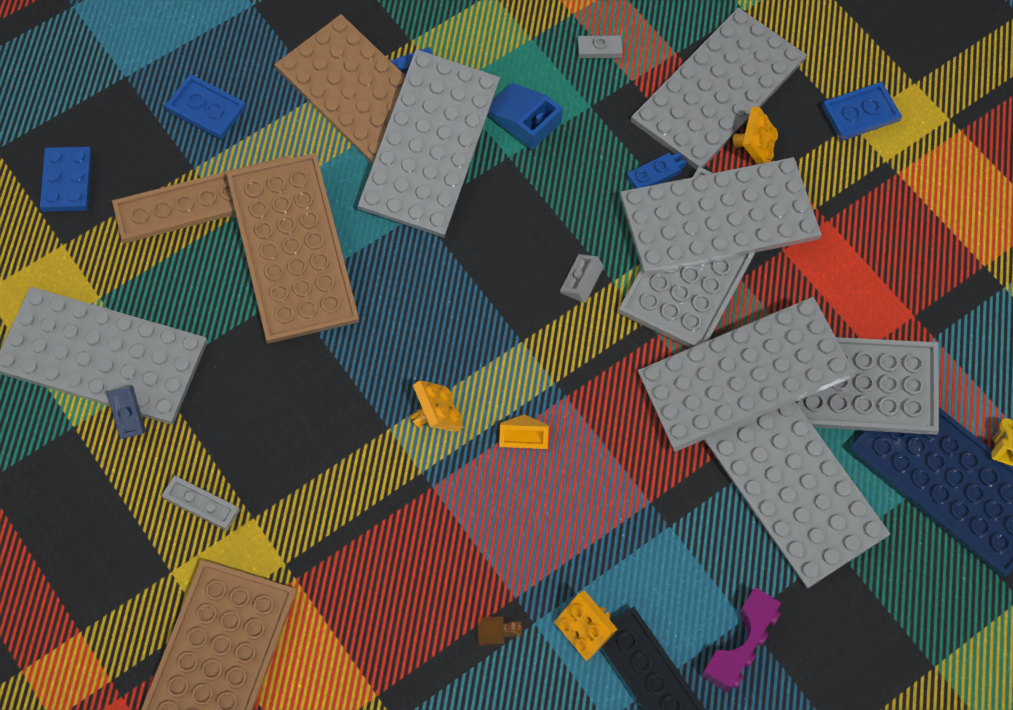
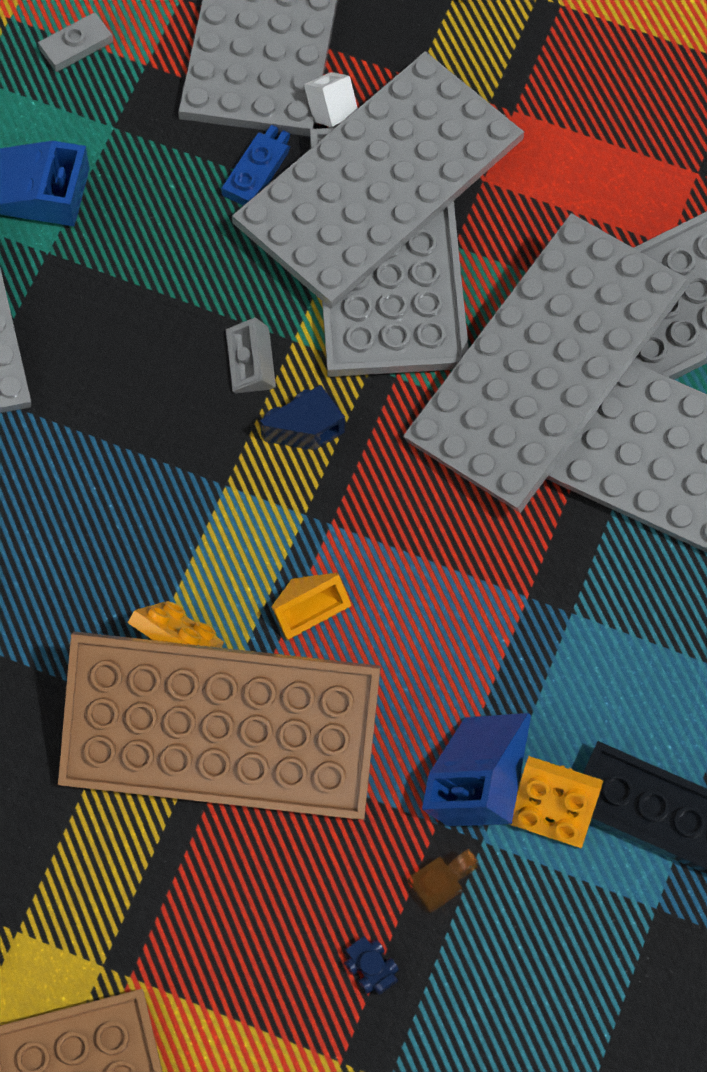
camera: 30 degrees left, 0 degrees up
(426, 649) = (368, 959): none -> dark blue piece
(427, 471) = (218, 725): none -> medium nougat plate
(553, 582) = (479, 772): none -> blue slope
(587, 331) = (305, 422): none -> dark blue slope
(721, 155) = (331, 99): none -> white brick
(758, 138) = (364, 49): light orange plate -> none

